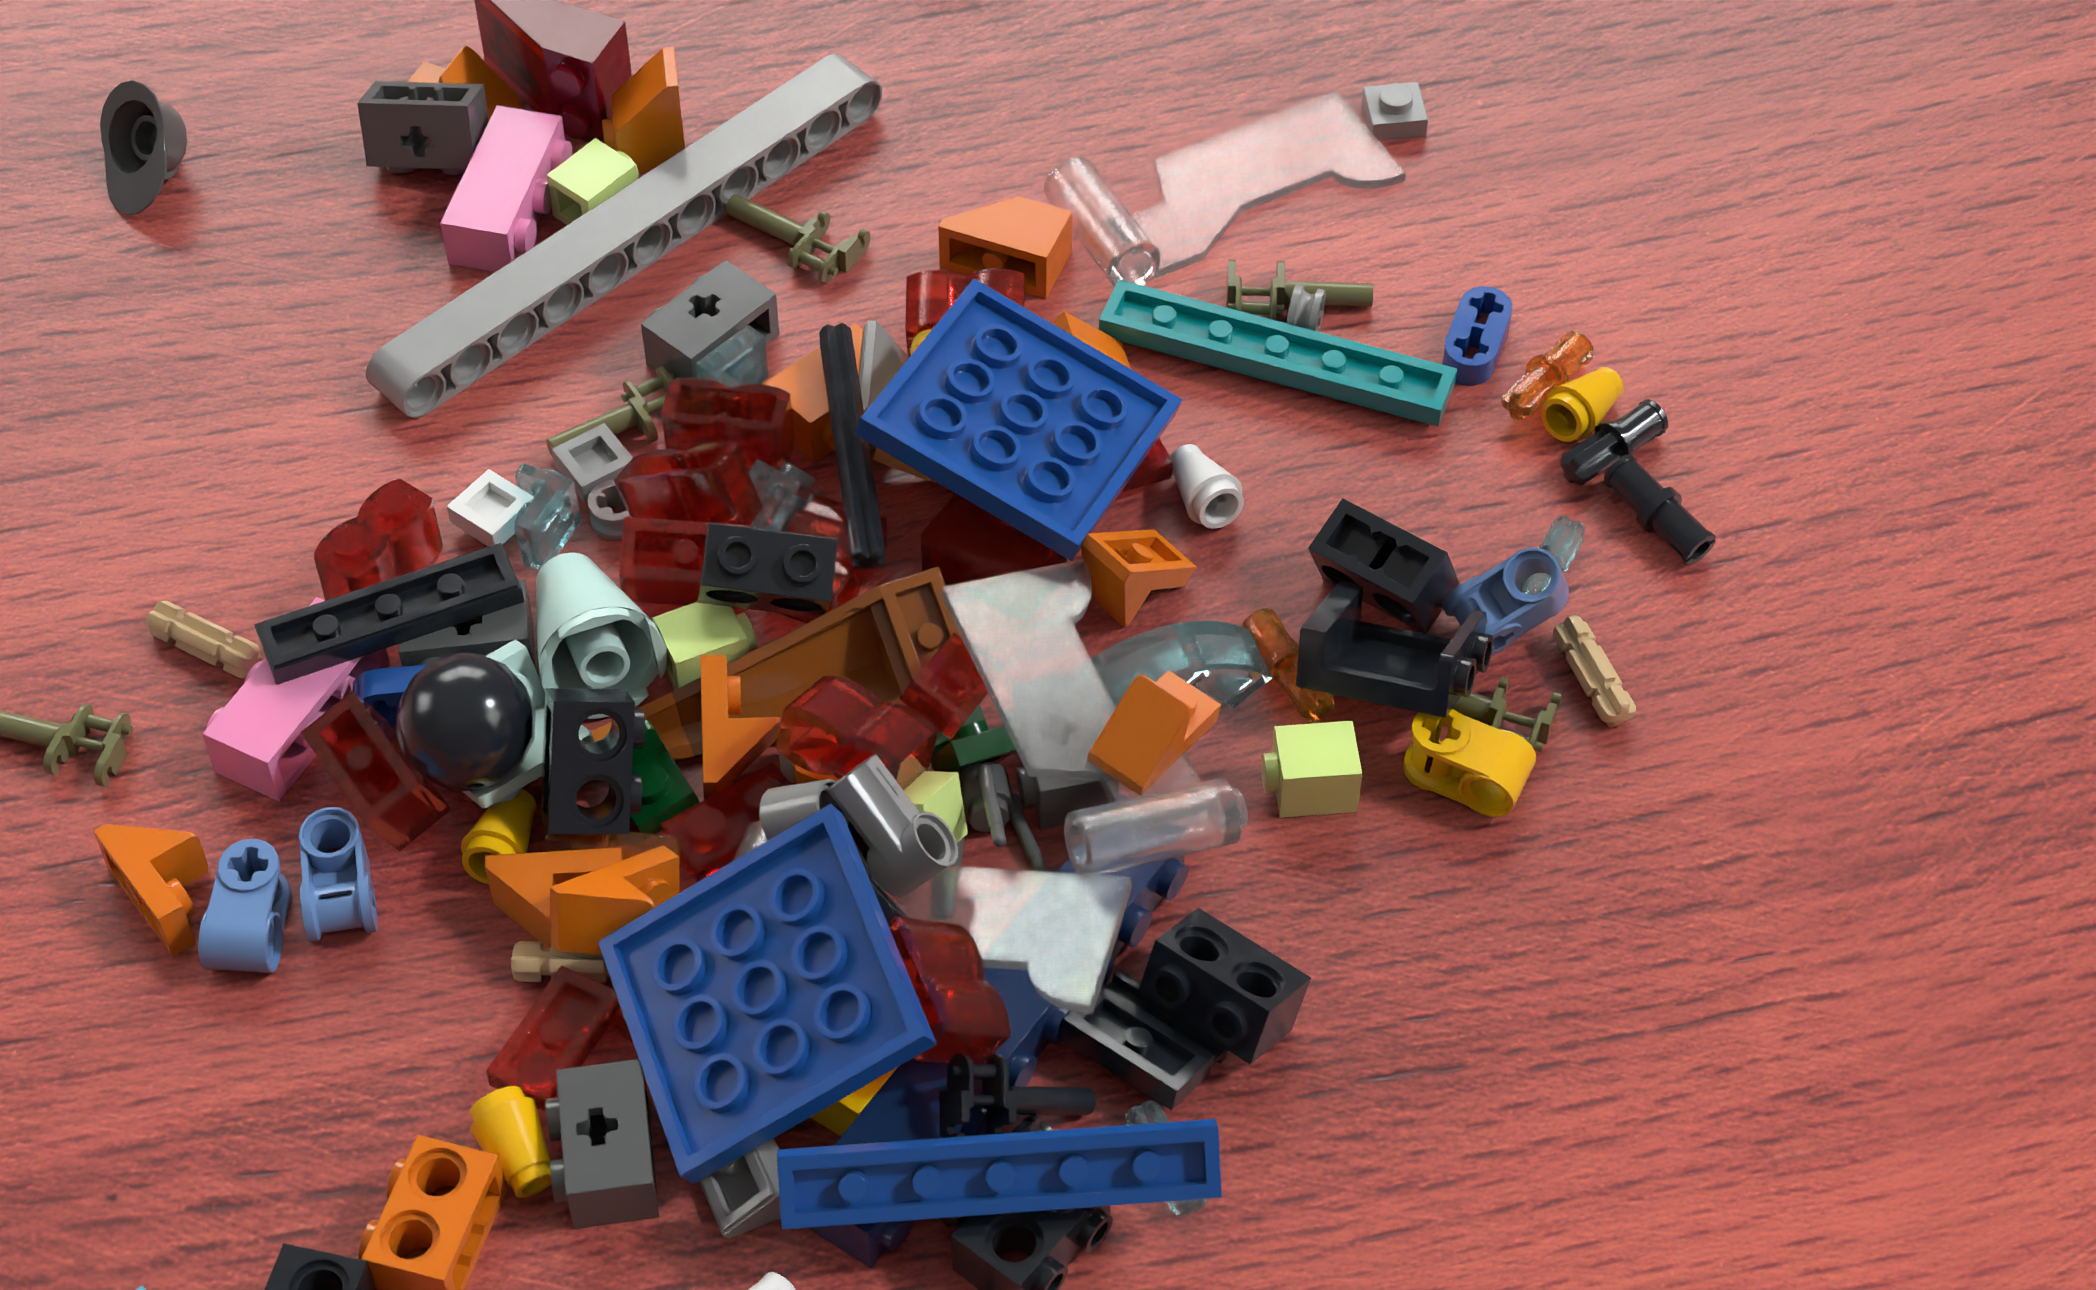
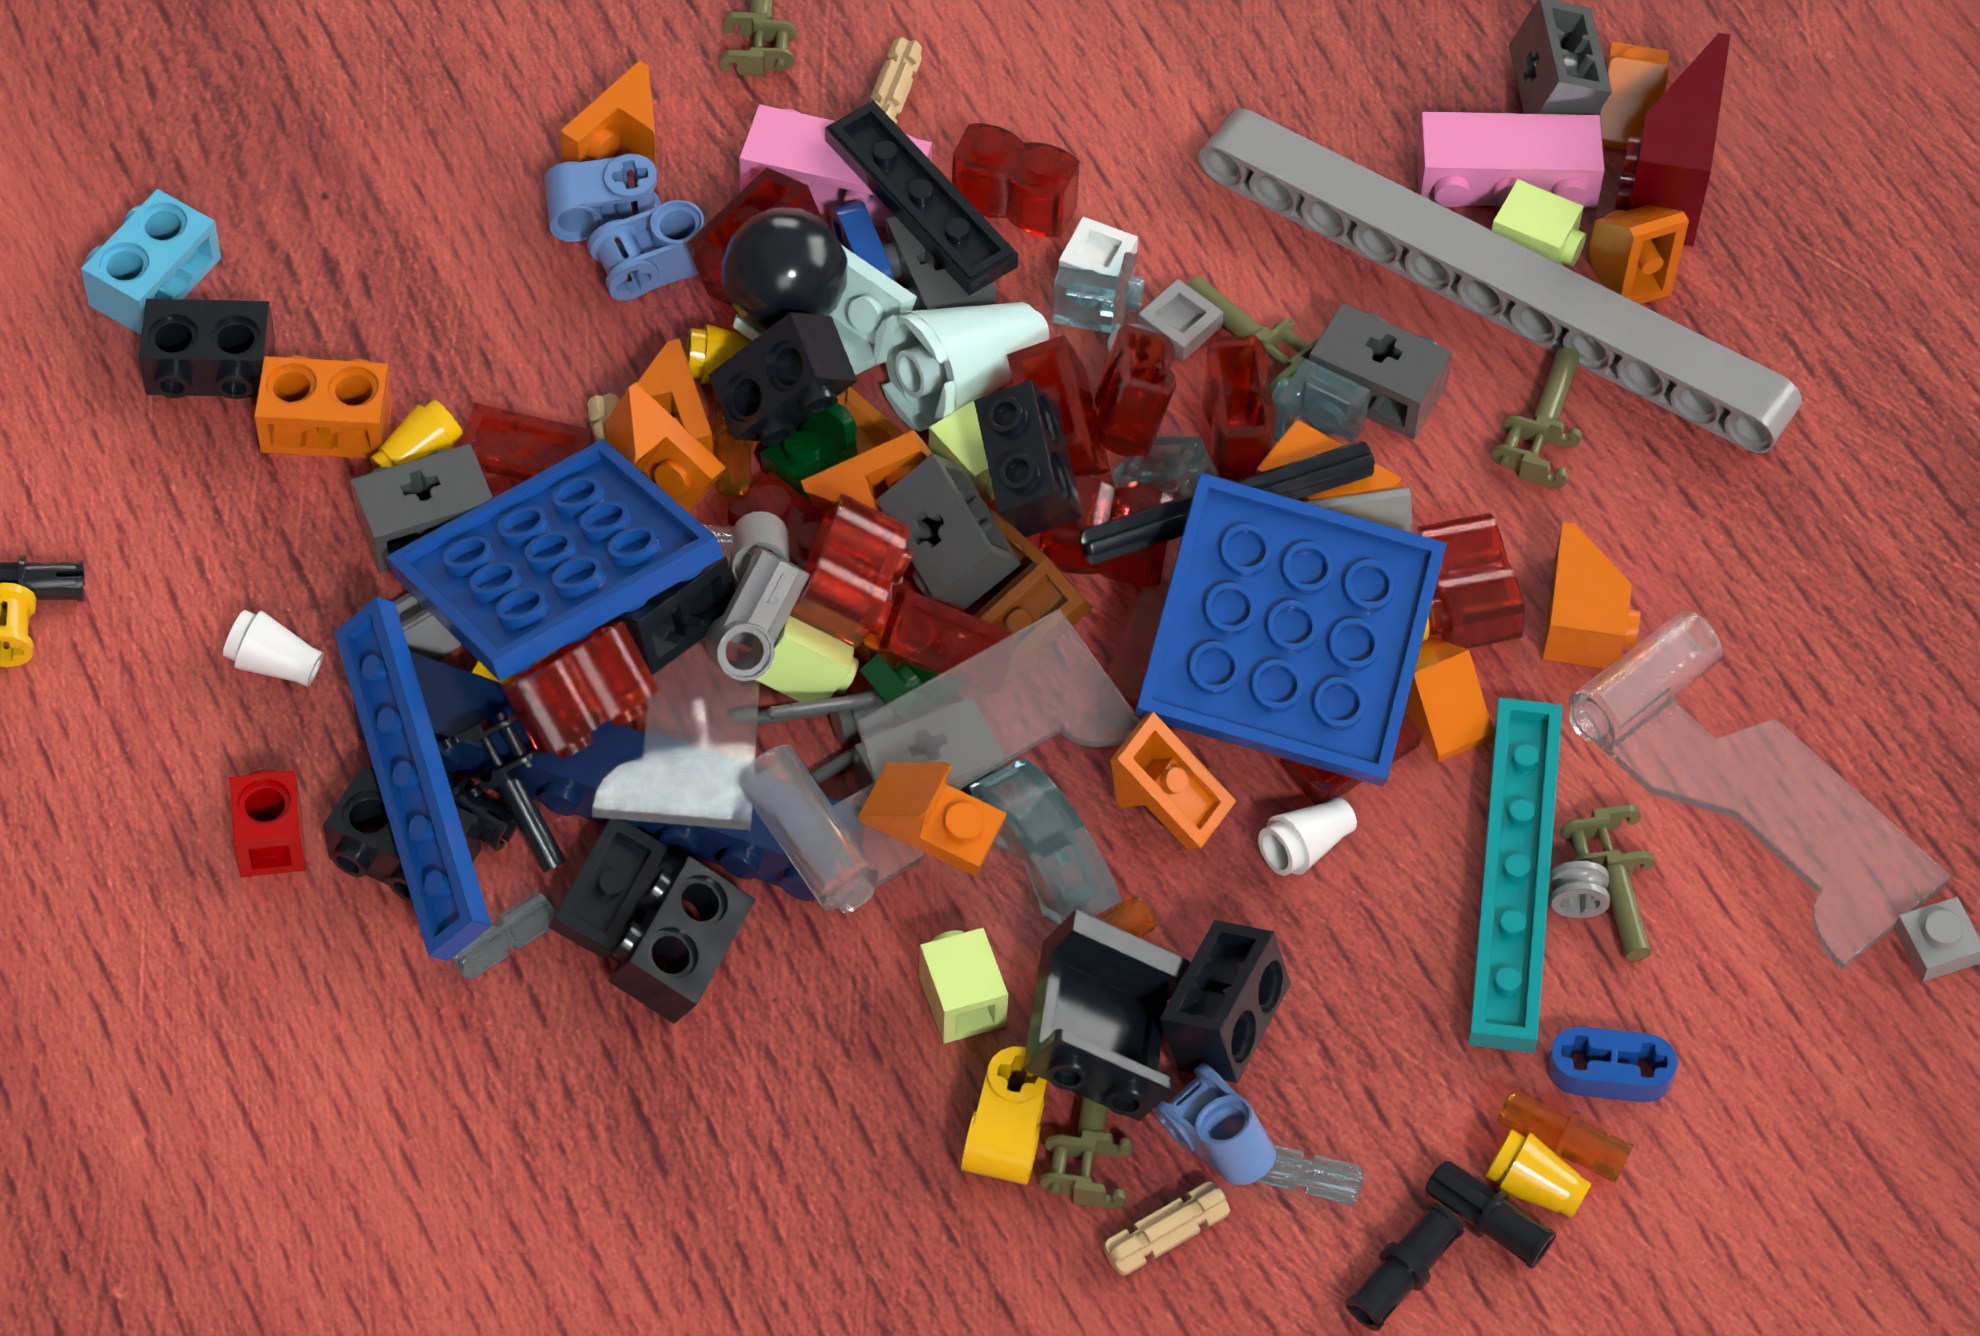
camera: 75 degrees right, 5 degrees up
(775, 660) = (951, 532): none -> dark grey brick

